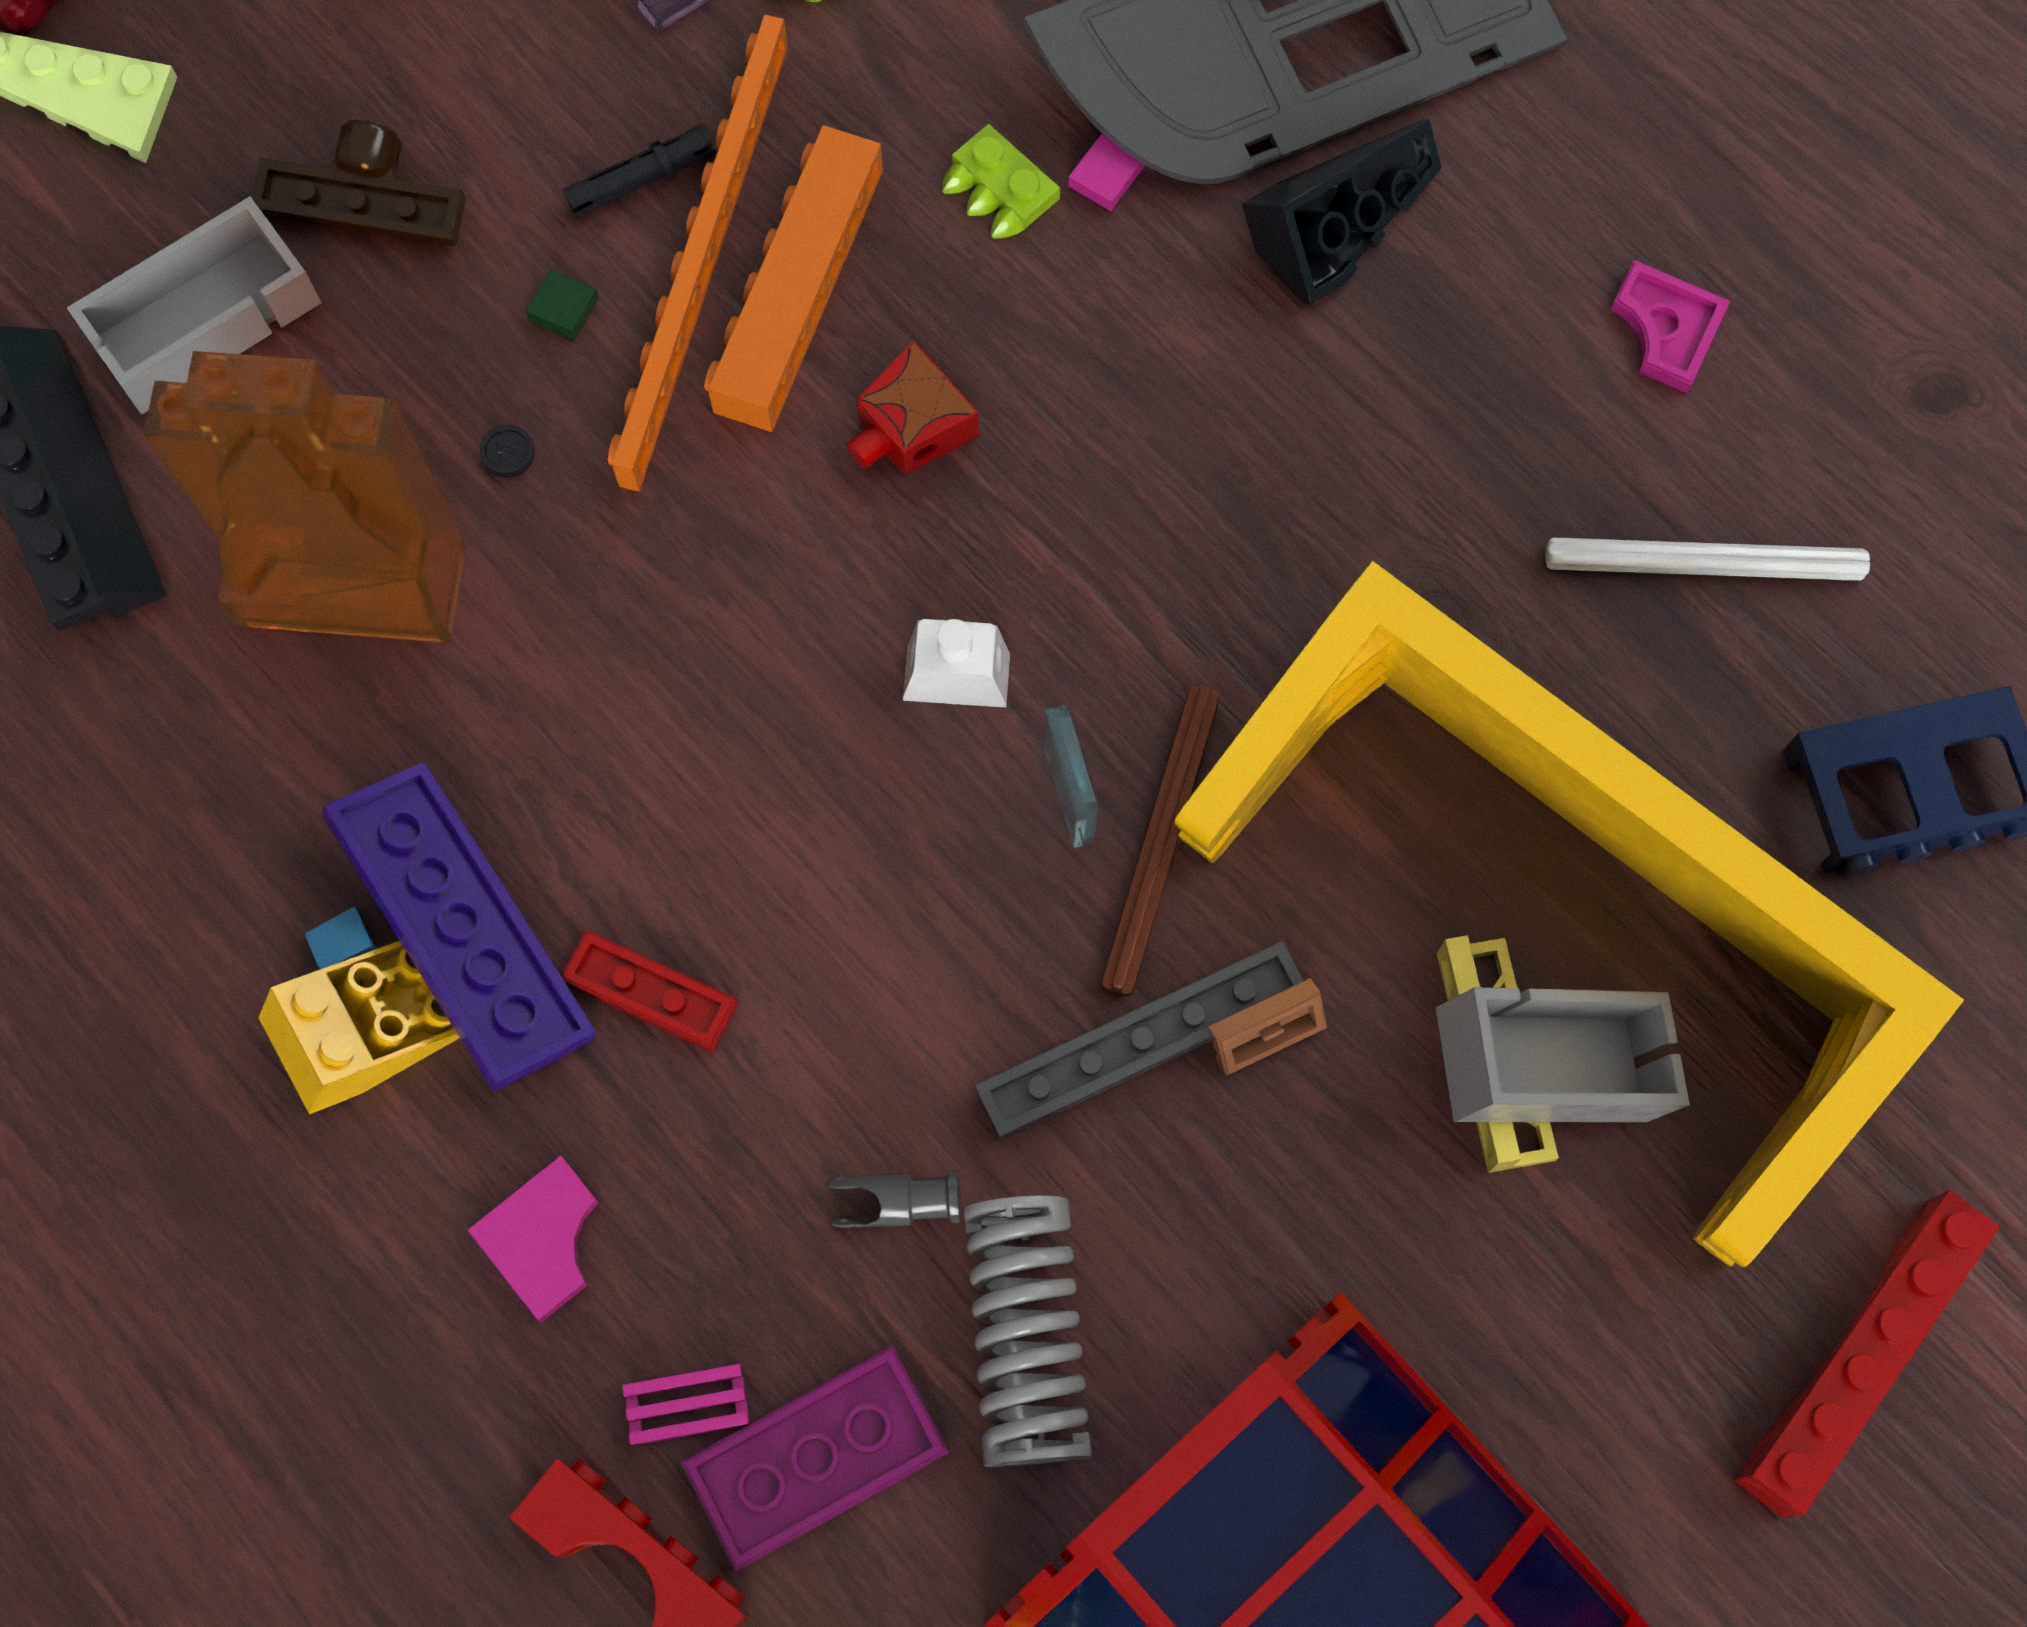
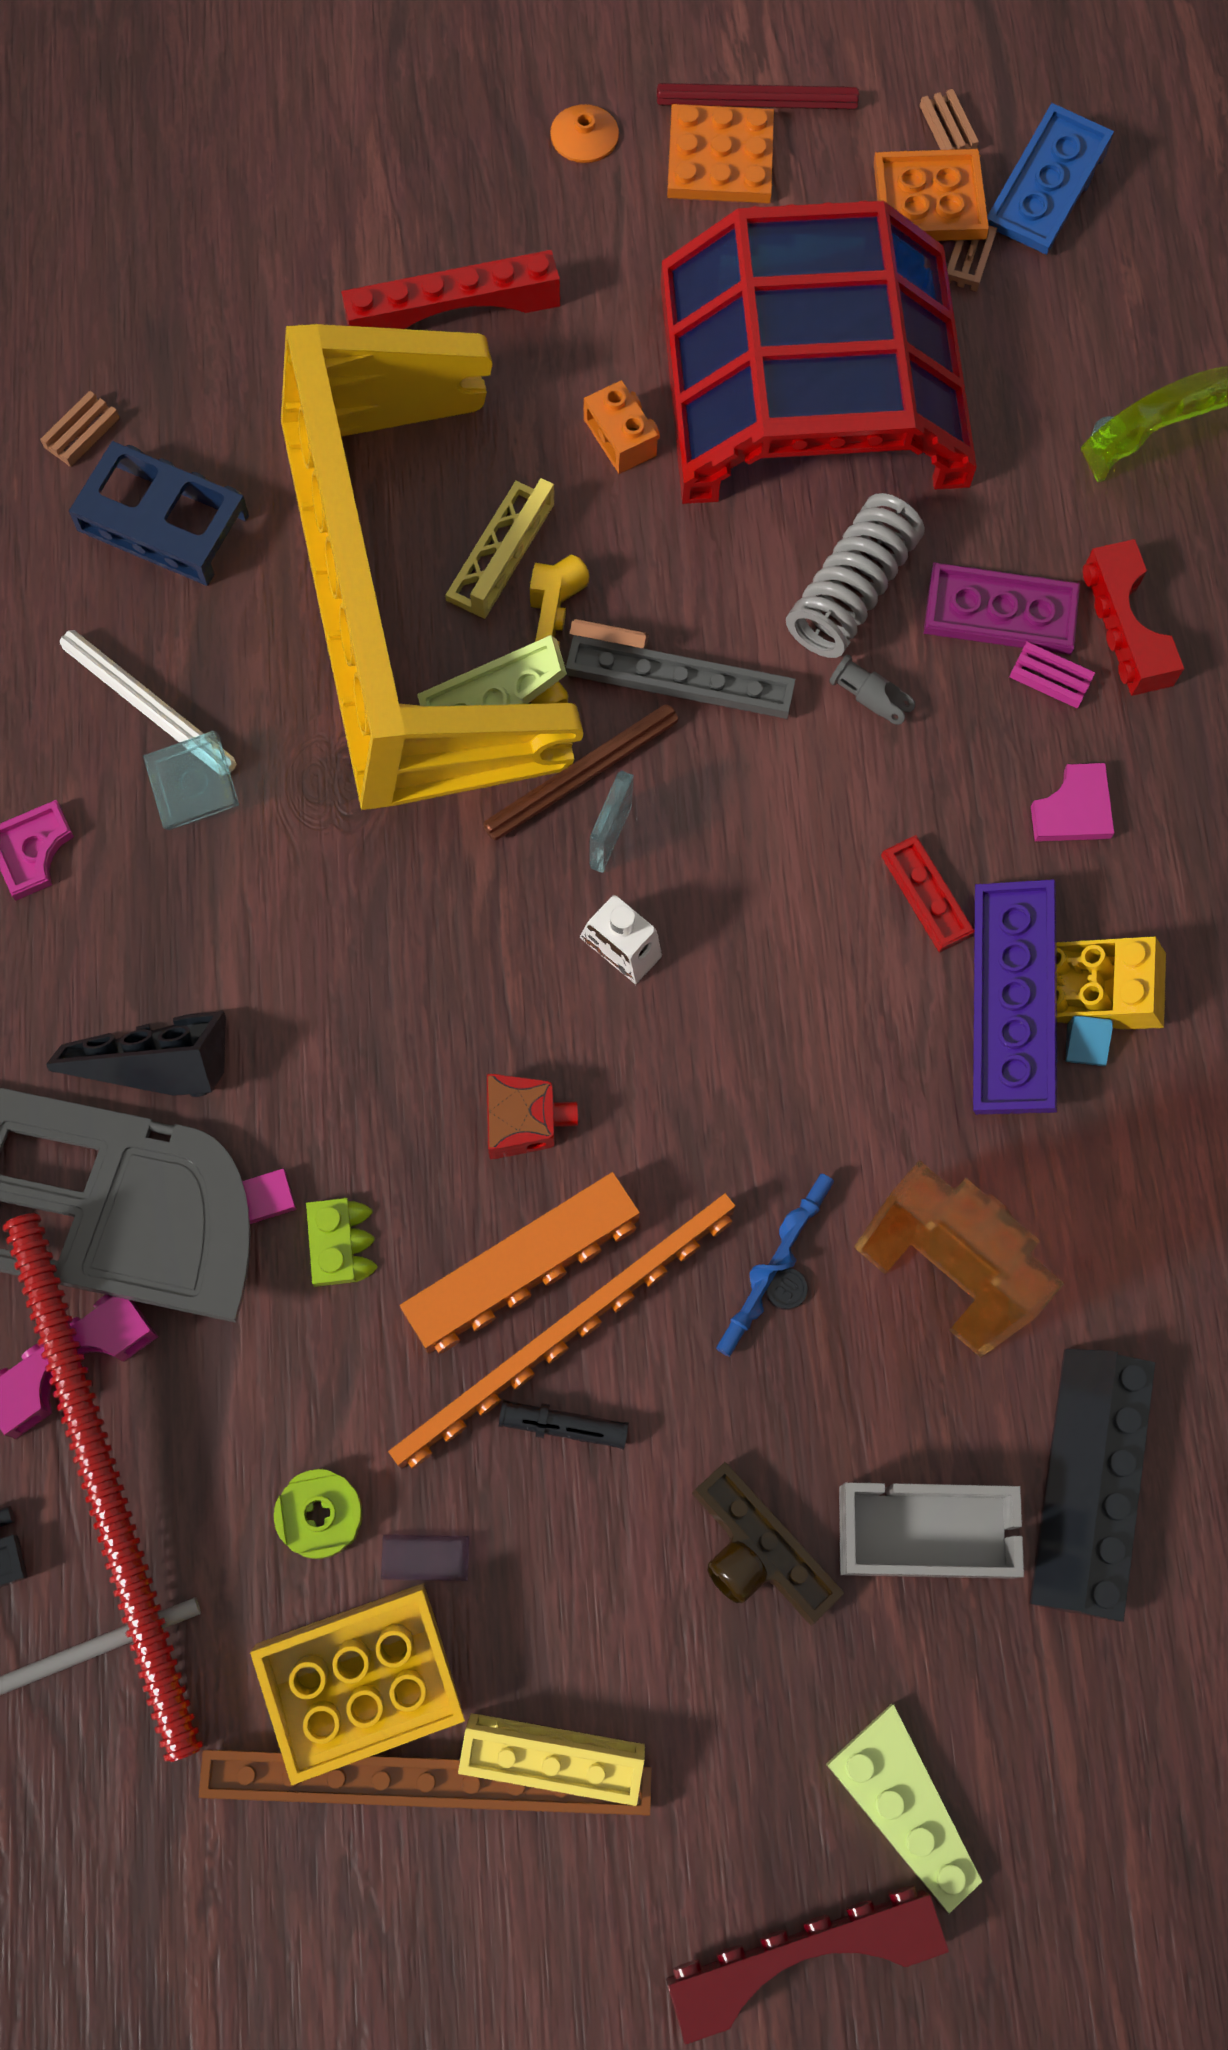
camera: 145 degrees left, 0 degrees up
(528, 460) = (763, 1274): none -> blue piece
(562, 304) = (682, 1365): dark green tile -> none
(1336, 822) = (504, 681): none -> yellowish green wing
(1389, 1035) = (548, 589): none -> yellow plate
(1494, 1334) = (621, 426): none -> orange brick
(1559, 1055) = (482, 496): light grey piece -> none
(1572, 501) = (190, 780): none -> clear light blue tile

